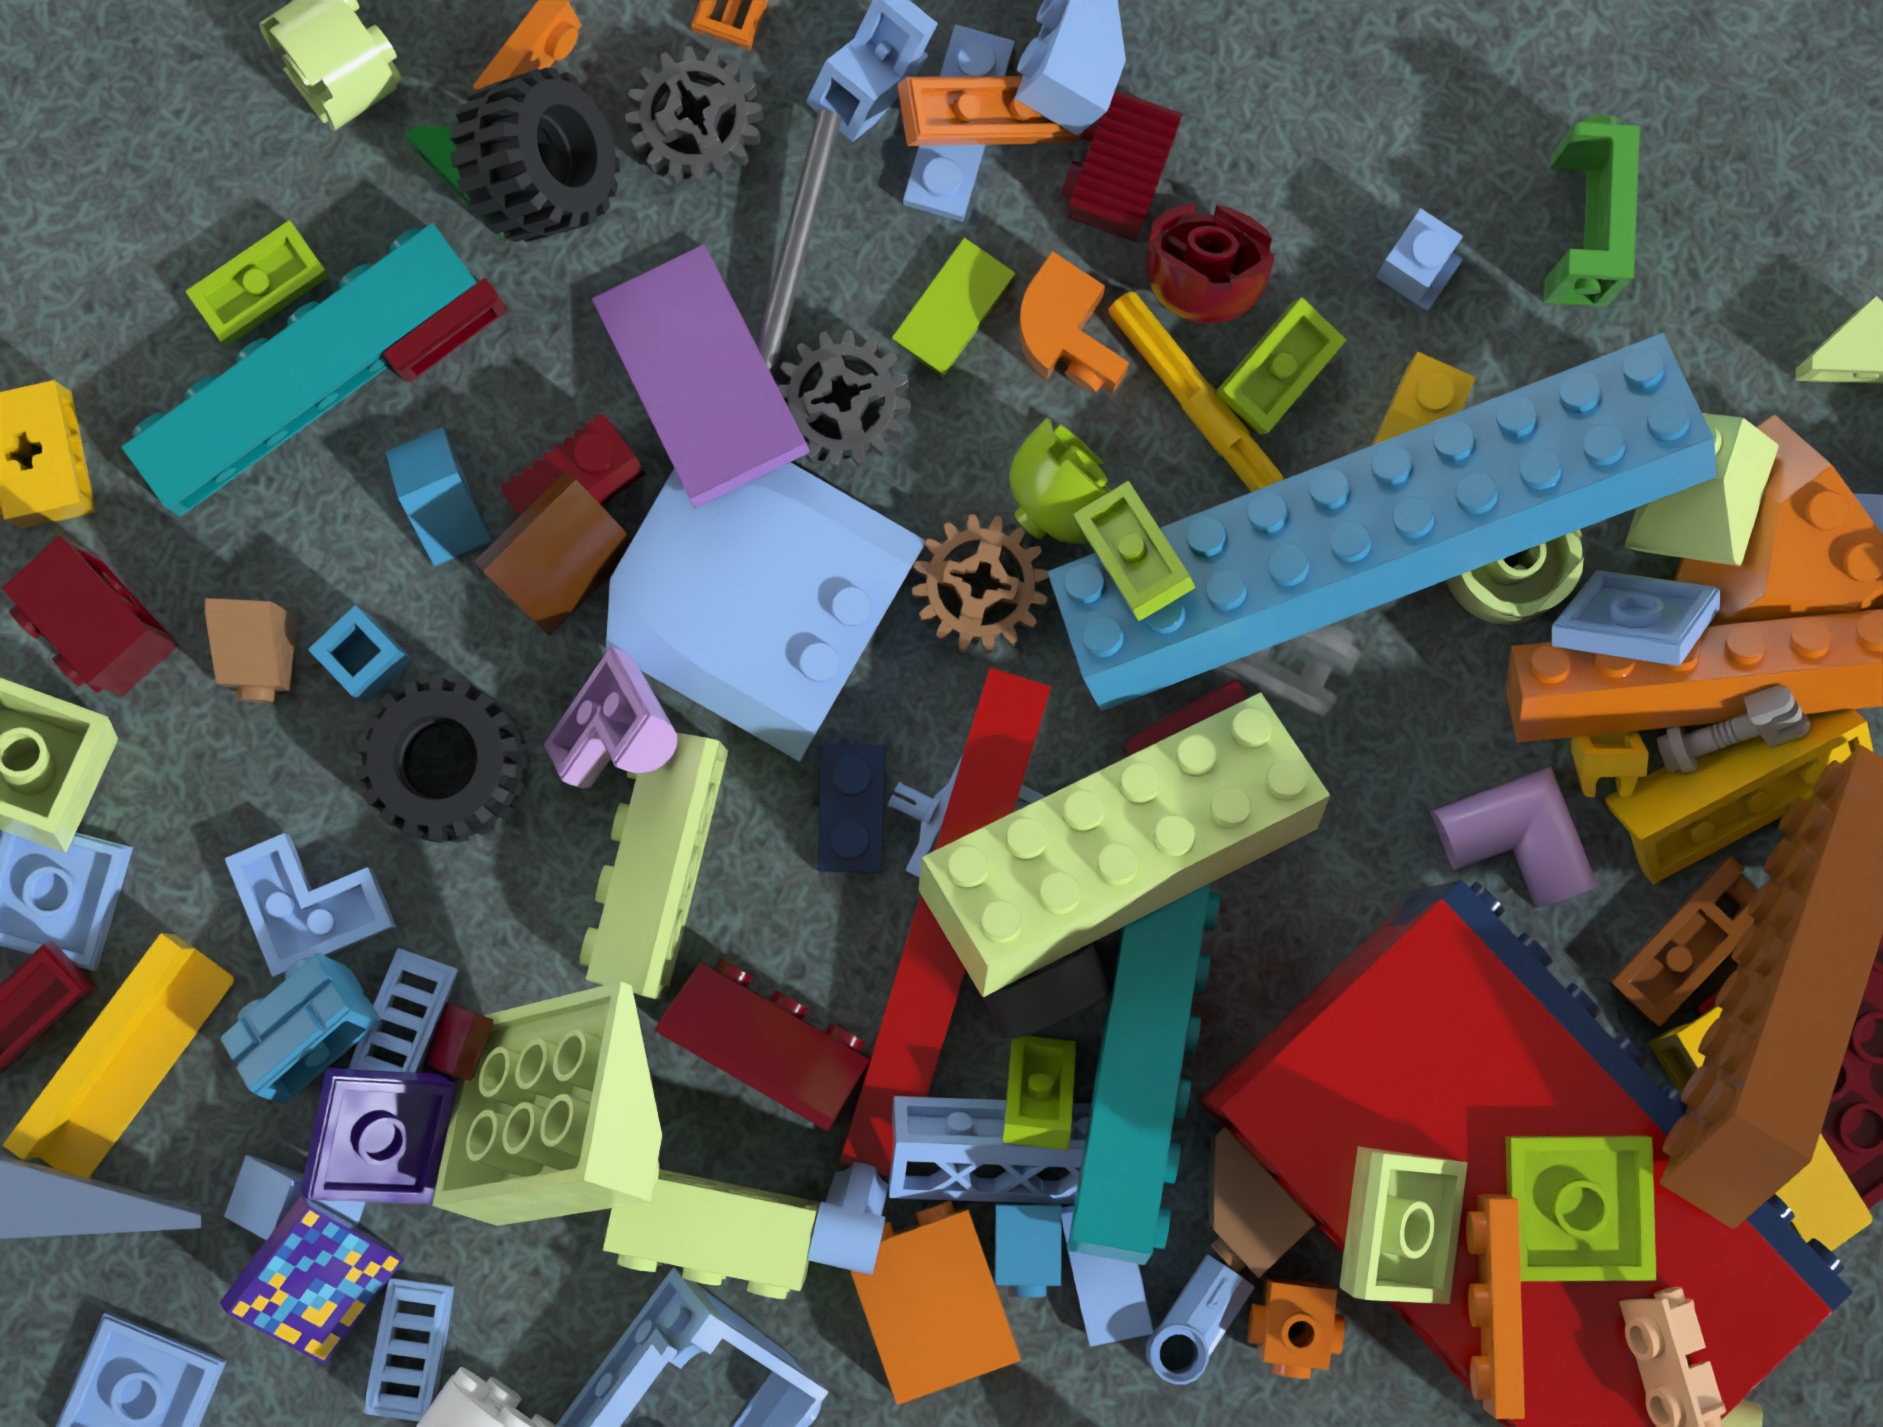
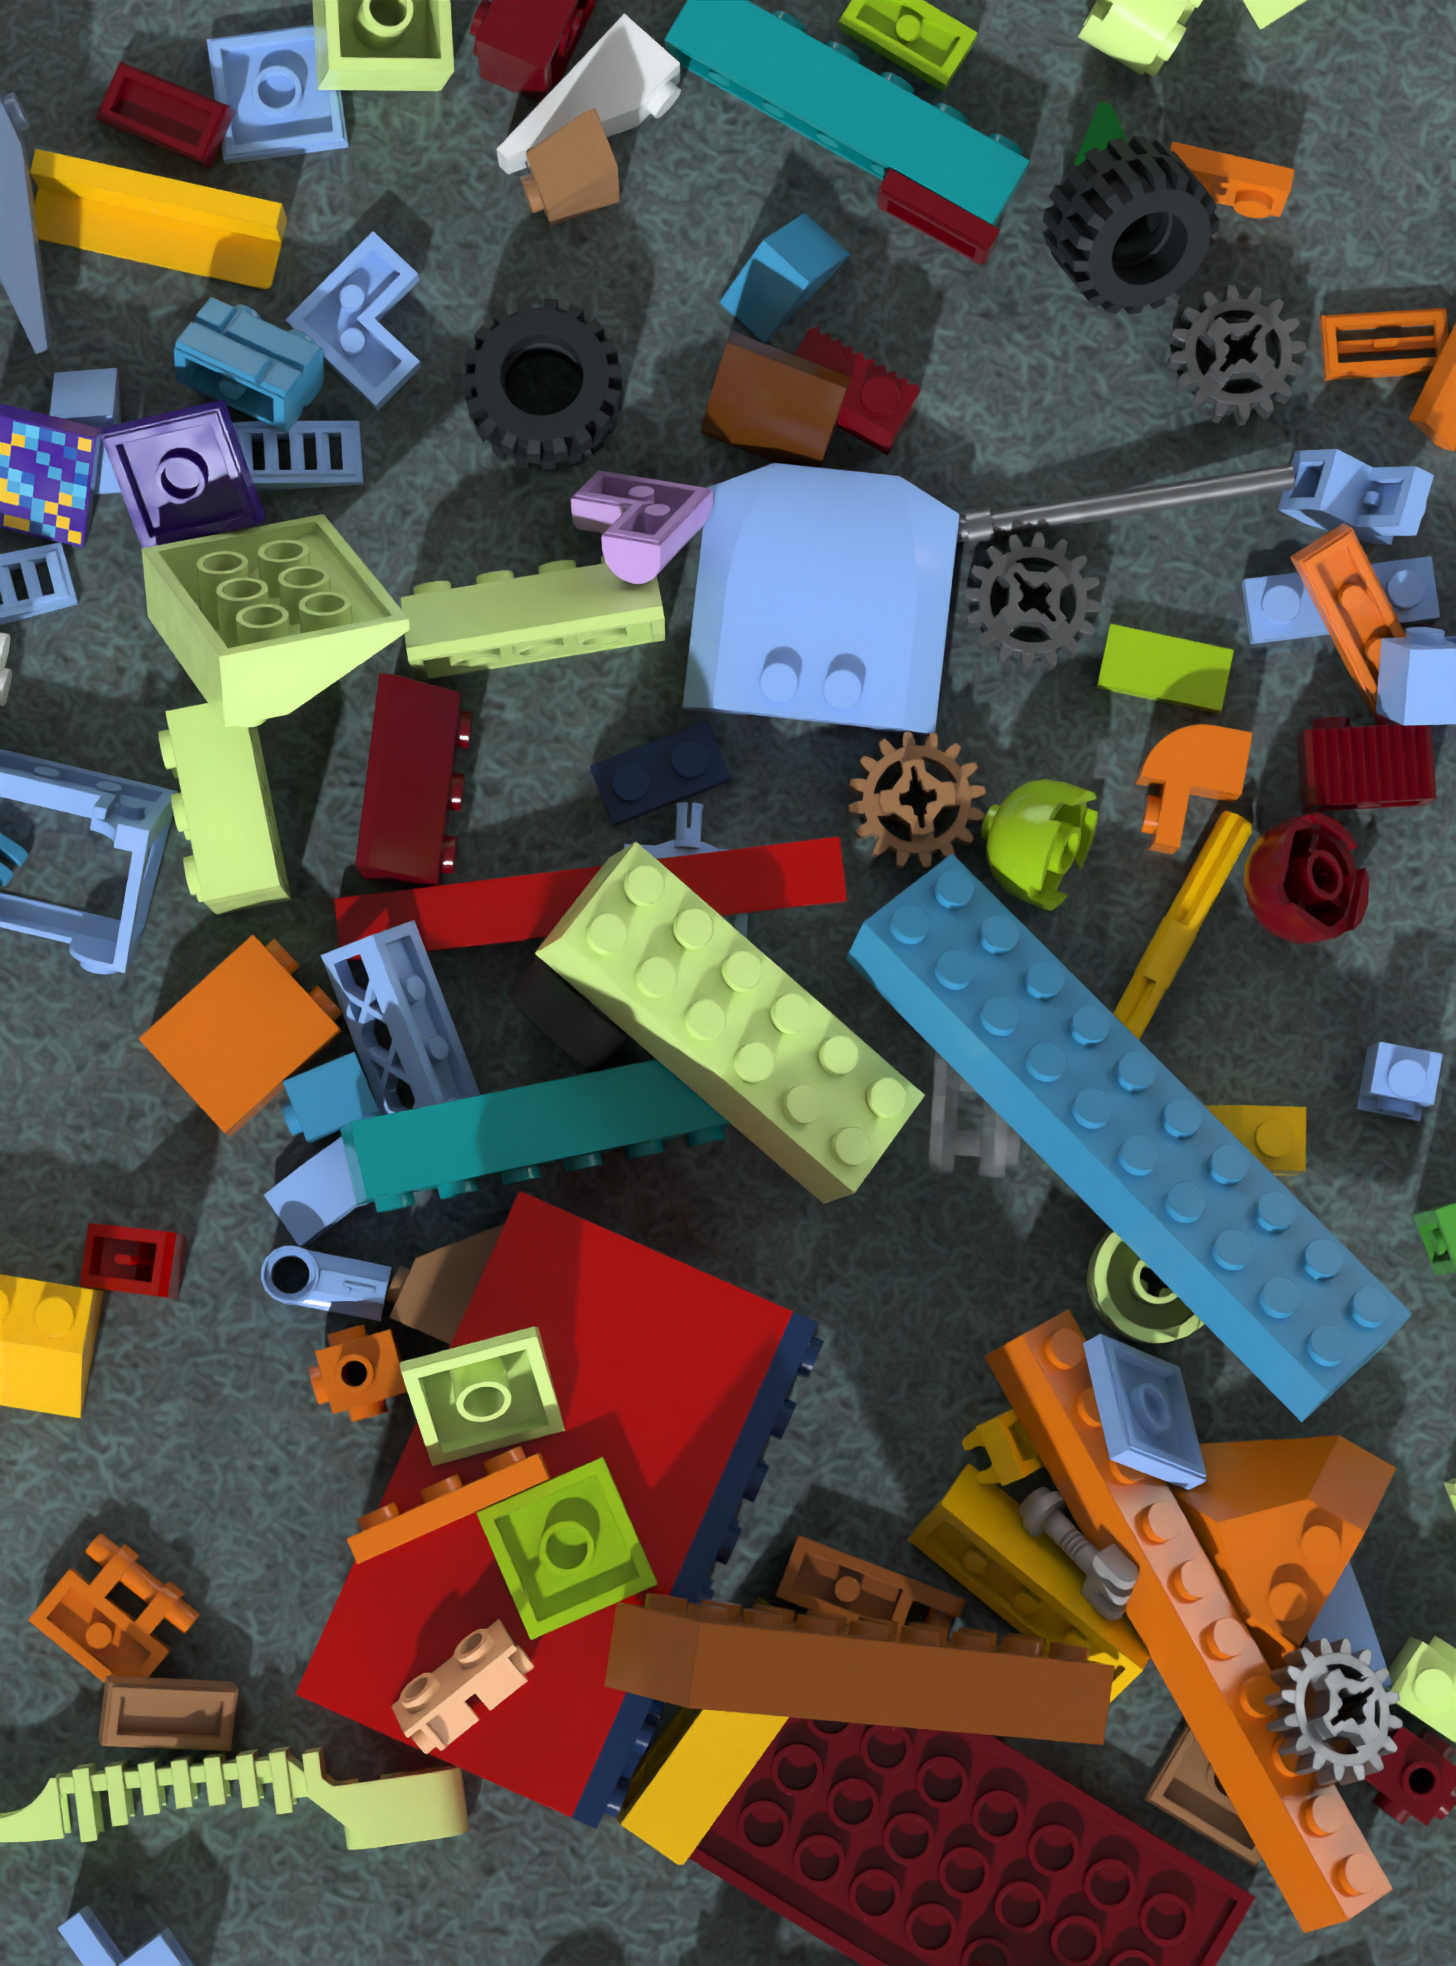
camera: 60 degrees right, 0 degrees up
(182, 565) = (619, 76): none -> white slope
(360, 654) = (608, 270): dark azure brick -> none
(459, 1041) = (297, 511): dark red tile -> none
(700, 376) = (996, 463): medium lavender tile -> none
(851, 1220) = (282, 927): light blue piece -> none
(1040, 1092) = (473, 1048): lime plate -> none
(1134, 551) = (999, 917): lime plate -> none
(1195, 712) = (888, 1049): dark red tile -> none
(1280, 366) = (1241, 991): lime plate -> none
(1531, 821) = (918, 1397): lavender brick -> none
(1715, 516) = (1275, 1448): yellowish green slope -> none

